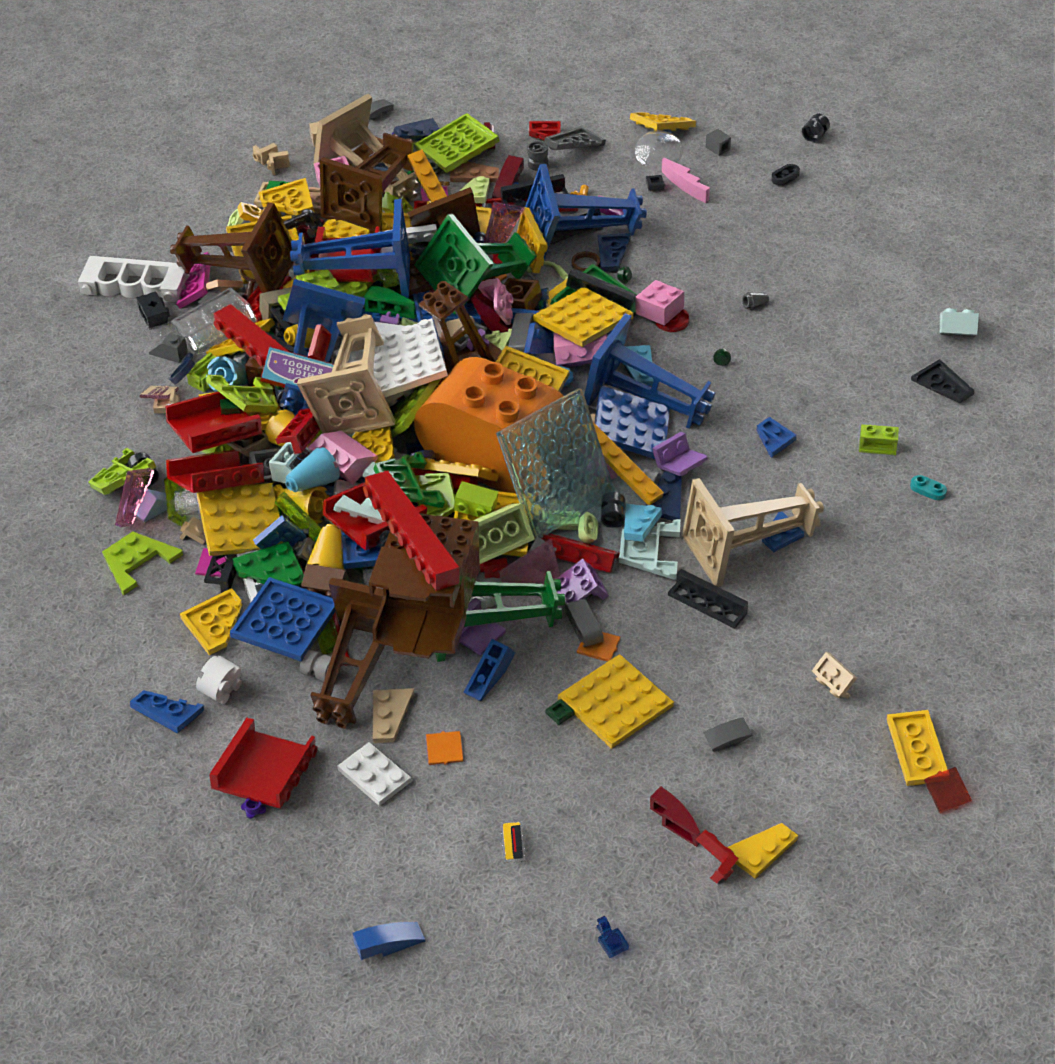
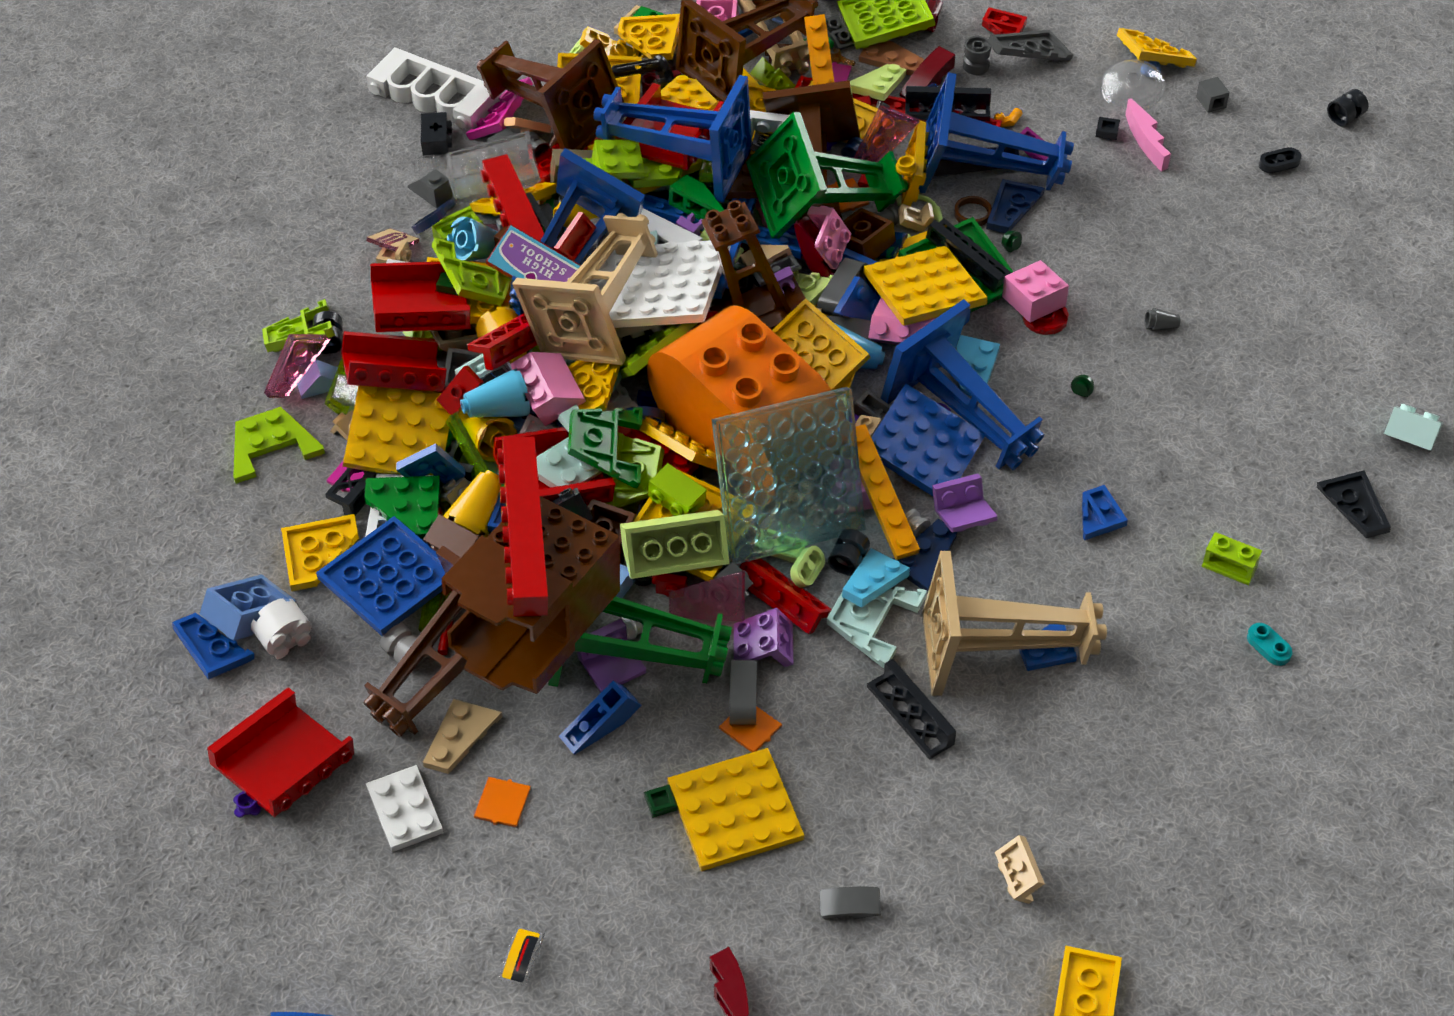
camera: 20 degrees right, 5 degrees up
(177, 675) = (237, 603): none -> medium blue slope
(276, 479) = (462, 383): none -> red plate
(531, 239) = (906, 165): none -> yellow plate
(548, 277) = (915, 218): none -> tan bracket

